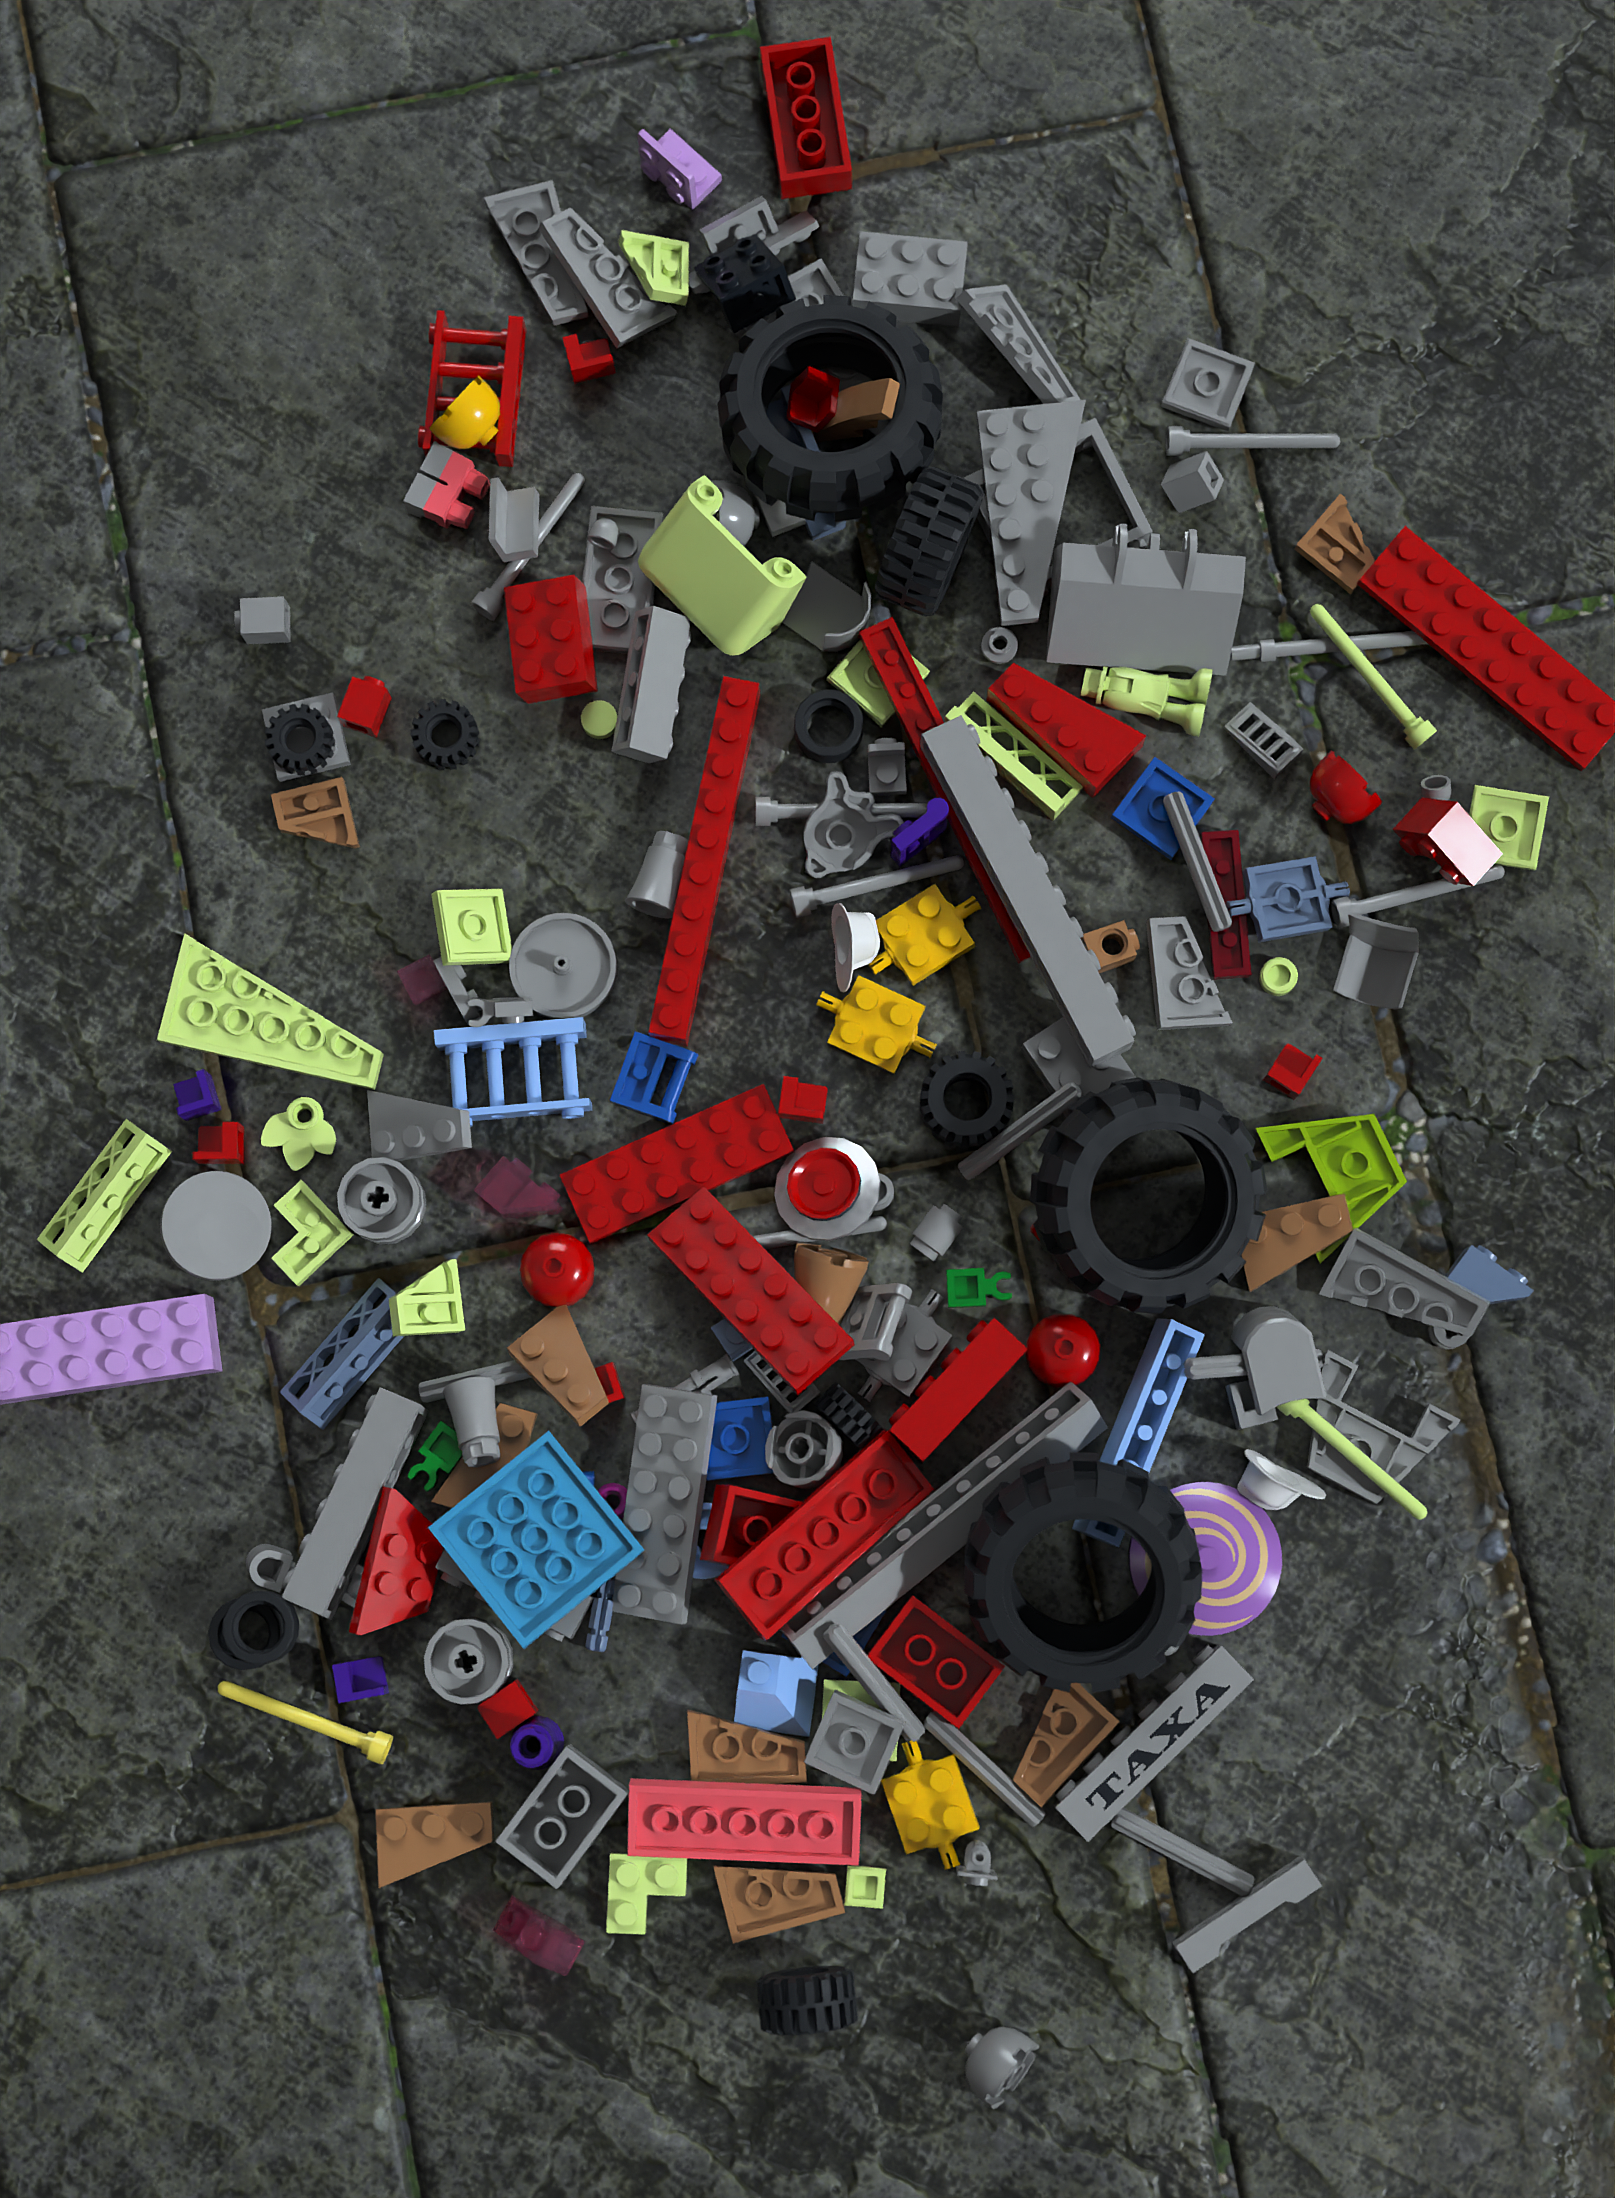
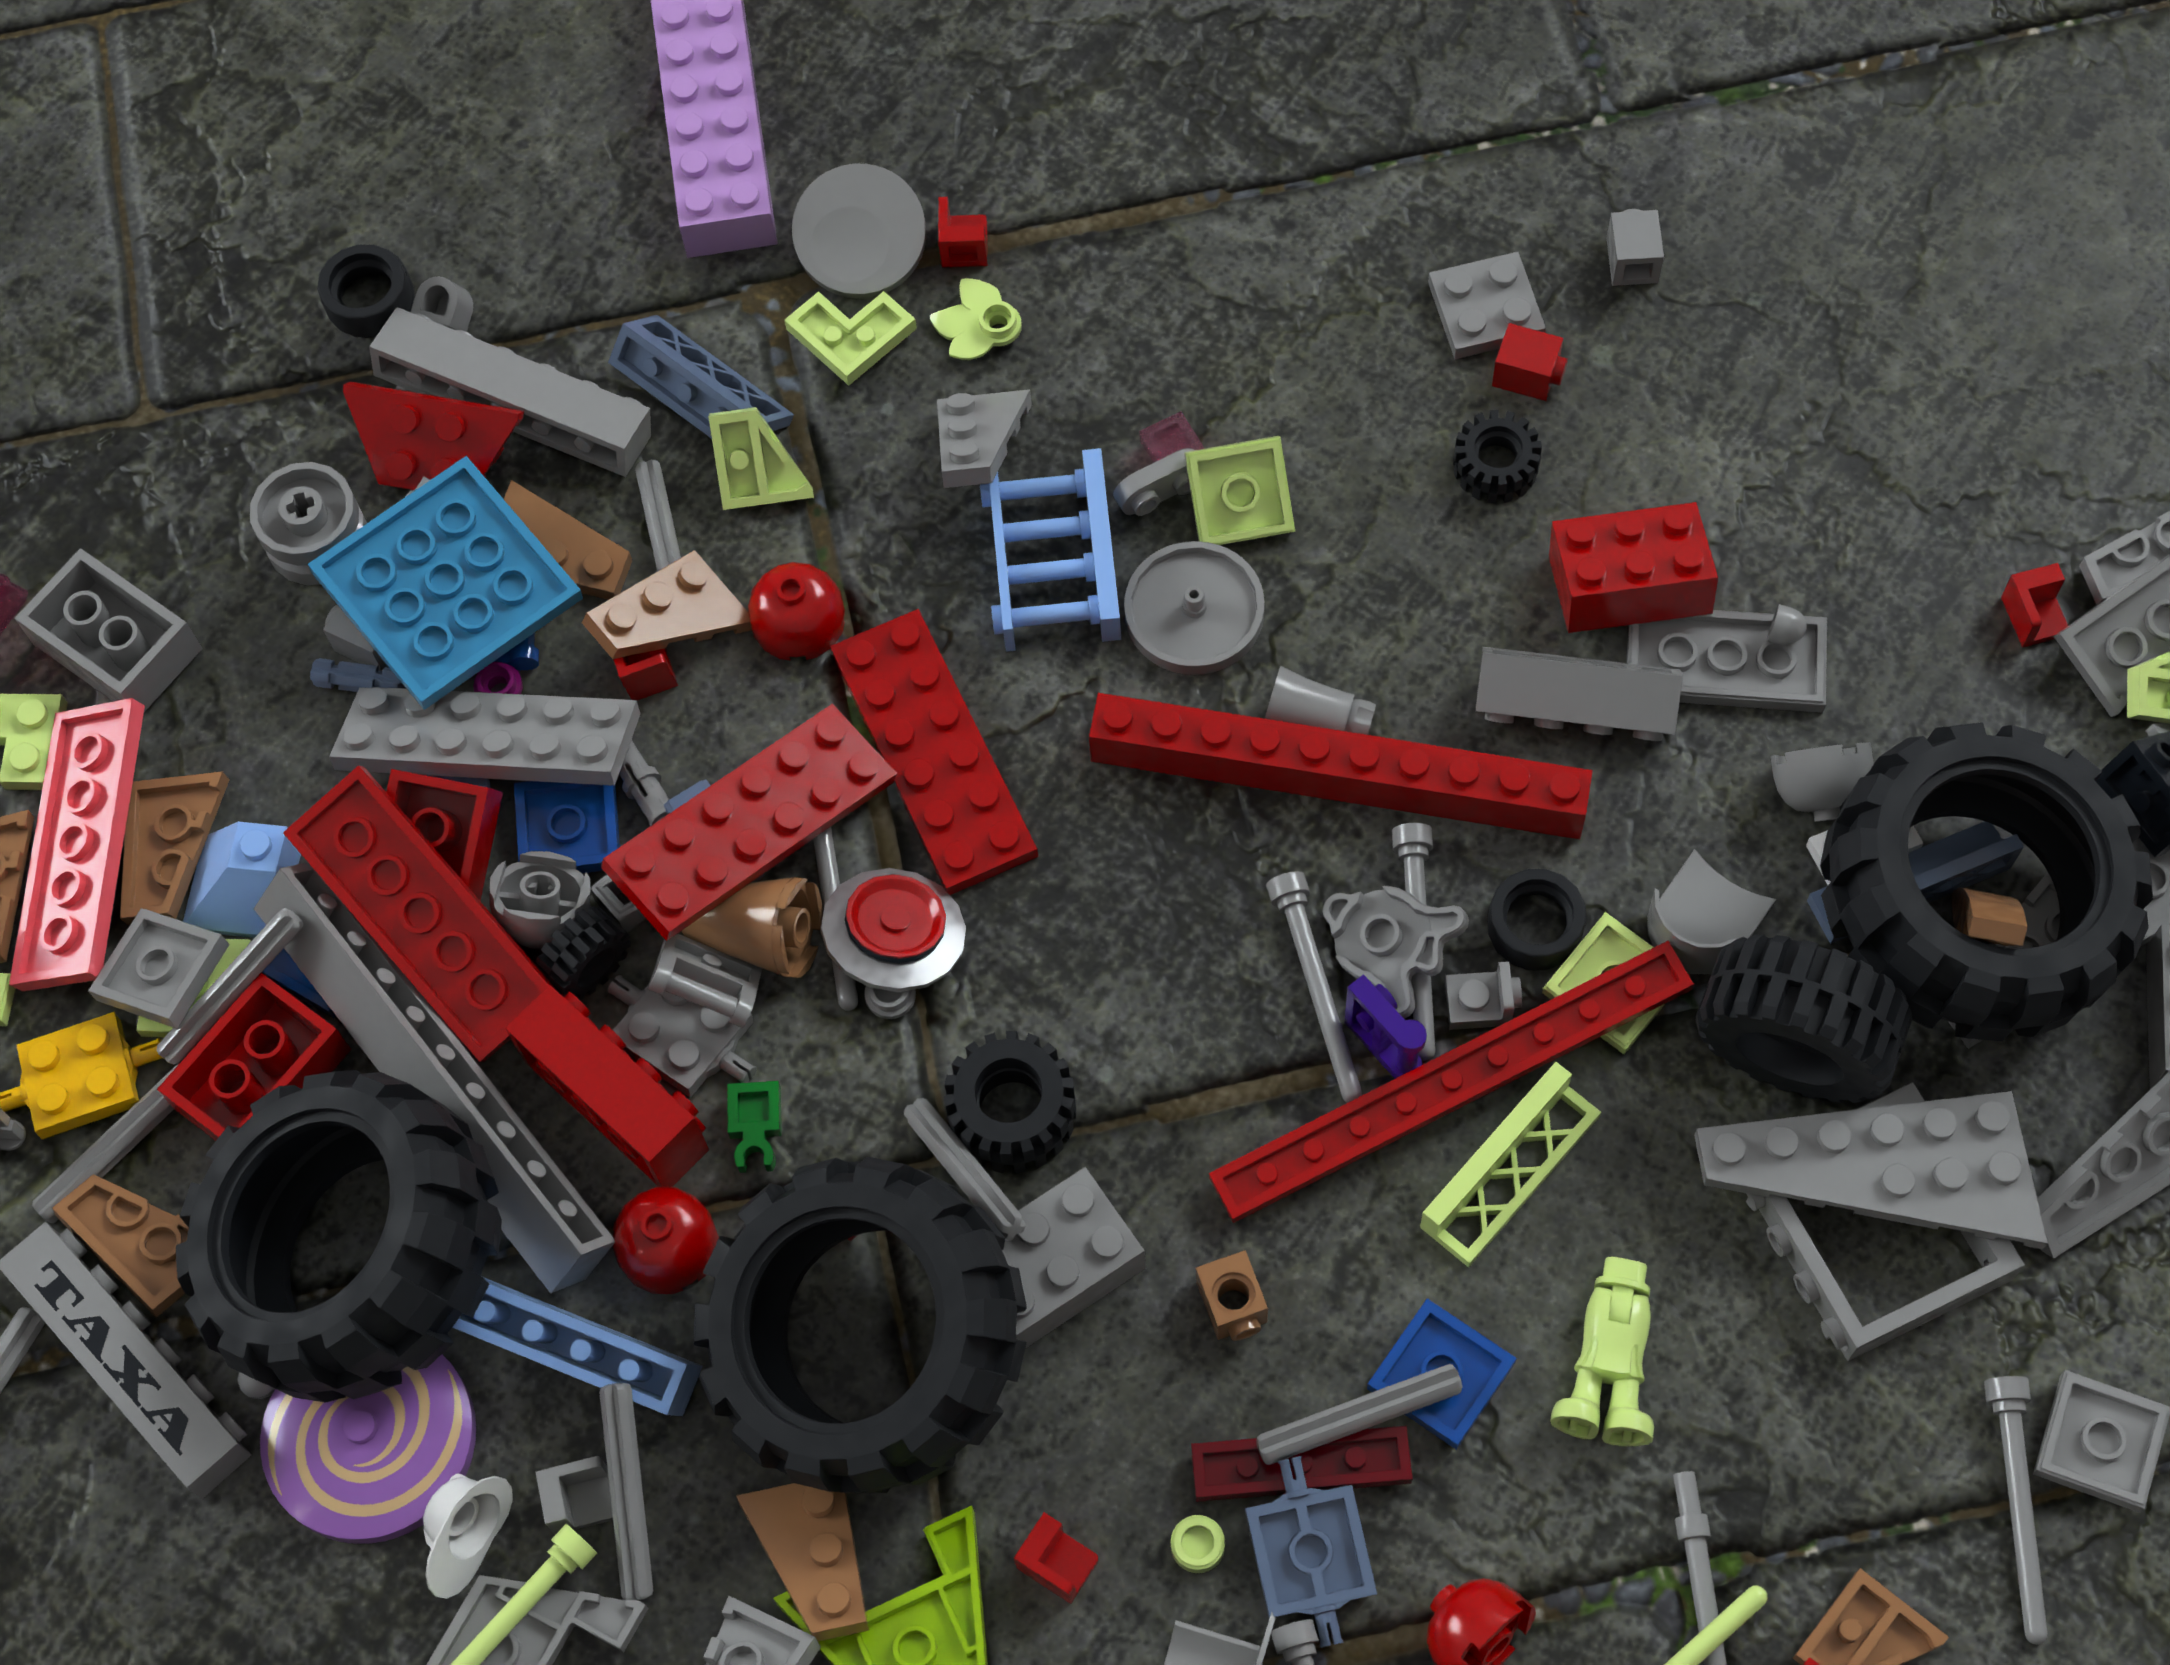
camera: 90 degrees right, 15 degrees down
(107, 1197) = (900, 120): yellowish green fence -> none
(196, 1096) = (1021, 209): dark purple panel -> none
(241, 1017) = (1118, 255): yellowish green wing -> none
(284, 724) = (1479, 261): black tyre -> none
(317, 813) = (1386, 319): medium nougat wing -> none
(360, 1679) = (301, 411): dark purple panel -> none
(362, 1189) = (885, 405): light grey wheel -> none
(373, 1744) = (222, 432): light yellow piece -> none
(428, 1835) = (110, 496): medium nougat wing -> none
(440, 1452) = (571, 489): green plate -> none
(442, 486) = (1844, 455): coral hips -> none
(469, 417) = (1928, 446): yellow cylinder -> none
(474, 1419) = (603, 514): light grey plant -> none
(489, 601) = (1682, 492): light grey piece -> none
(506, 374) = (1975, 512): red fence -> none
(507, 1708) = (249, 571): red panel -> none
(510, 1009) = (1130, 533): light grey plate -> none
(513, 521) = (1793, 515): light grey panel -> none
(515, 1194) = (896, 556): clear pink slope -> none
(551, 1742) = (200, 597): dark purple plant -> none
(599, 719) = (1531, 634): yellowish green tile -> none
(642, 1072) = (1048, 701): blue plate -> none
(715, 576) = (1698, 774): yellowish green windscreen -> none
(802, 1101) = (1013, 896): red panel -> none
(813, 399) = (2002, 868): red panel -> none
(855, 942) = (1232, 959): white piece -> none
(876, 1024) = (1119, 991): yellow plate -> none
(924, 934) = (1247, 1051): yellow plate -> none
(936, 1231) = (831, 1070): light grey brick -> none
(995, 655) = (1671, 1160): light grey plate -> none
(1027, 892) = (1296, 1160): light grey brick -> none
(1065, 728) = (1543, 1240): red wedge -> none
(1144, 605) = (1738, 1333): light grey piece -> none
(1179, 978) = (1190, 1399): light grey wing -> none
(1192, 482) = (1944, 1416): light grey panel -> none
(1263, 758) = (1523, 1552): light grey slope -> none
(1278, 1358) = (634, 1522): light grey piece -> none

